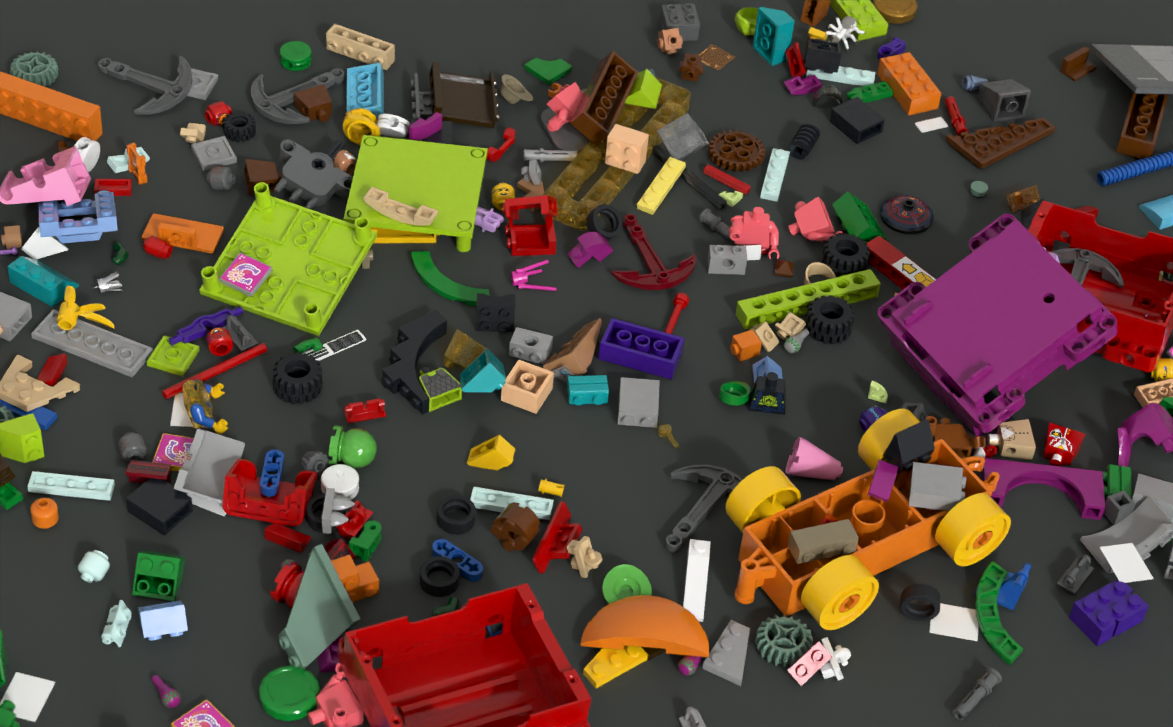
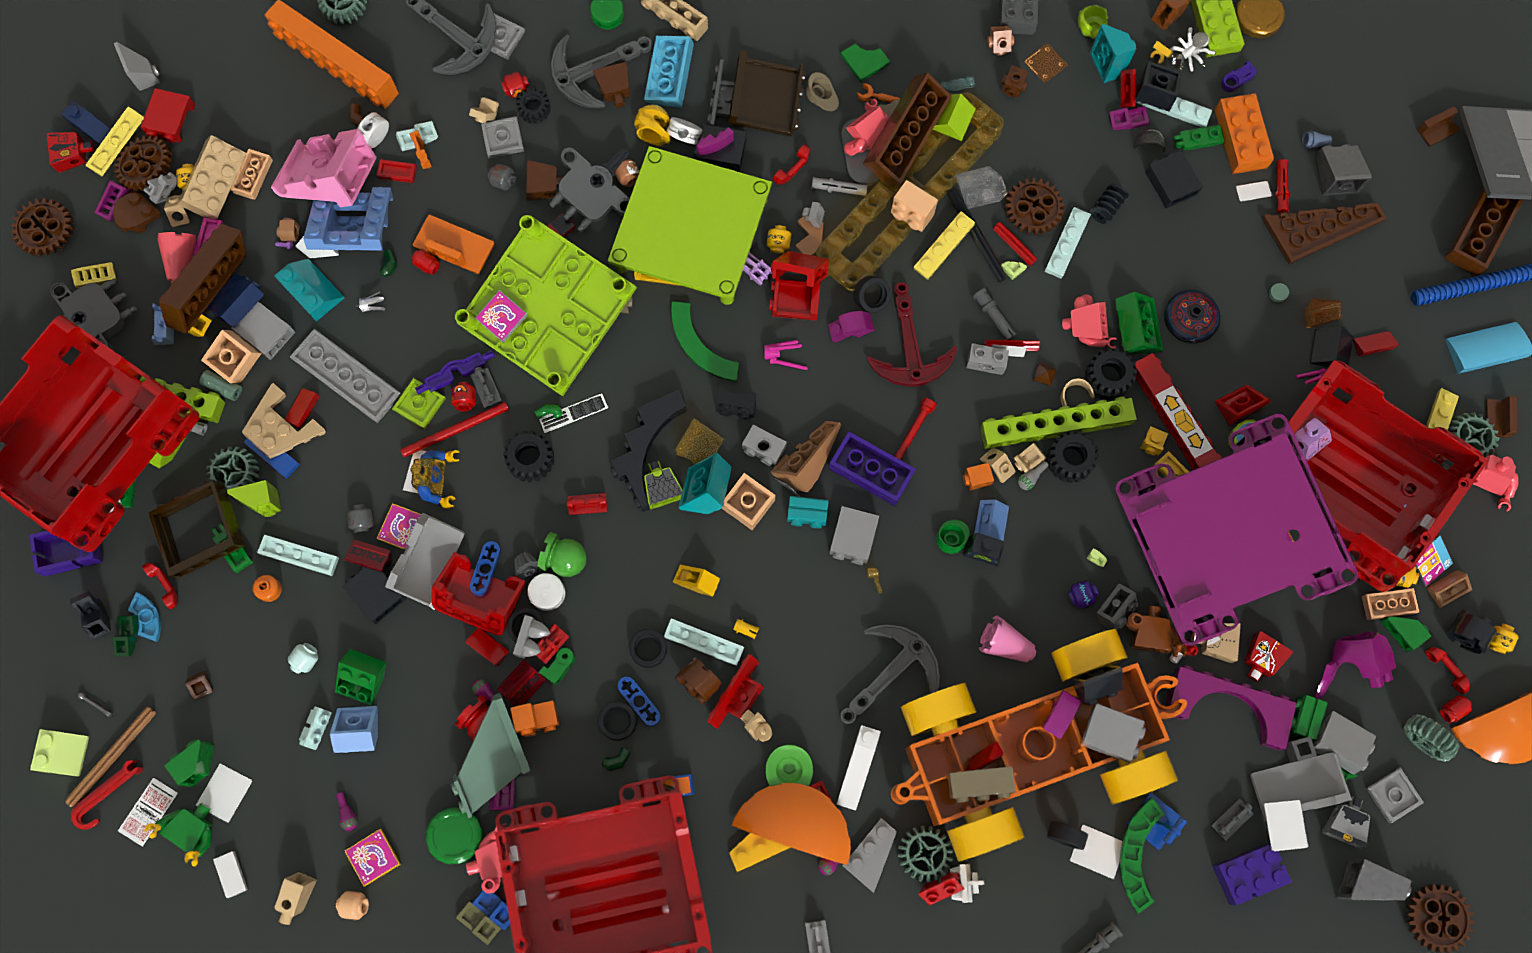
camera: 15 degrees right, 30 degrees up
(70, 310) = (326, 342): yellow plant -> none
(398, 211) = (663, 260): tan slope -> none
(755, 229) = (1022, 331): coral torso -> none
(1085, 260) = (1351, 438): dark grey piece -> none

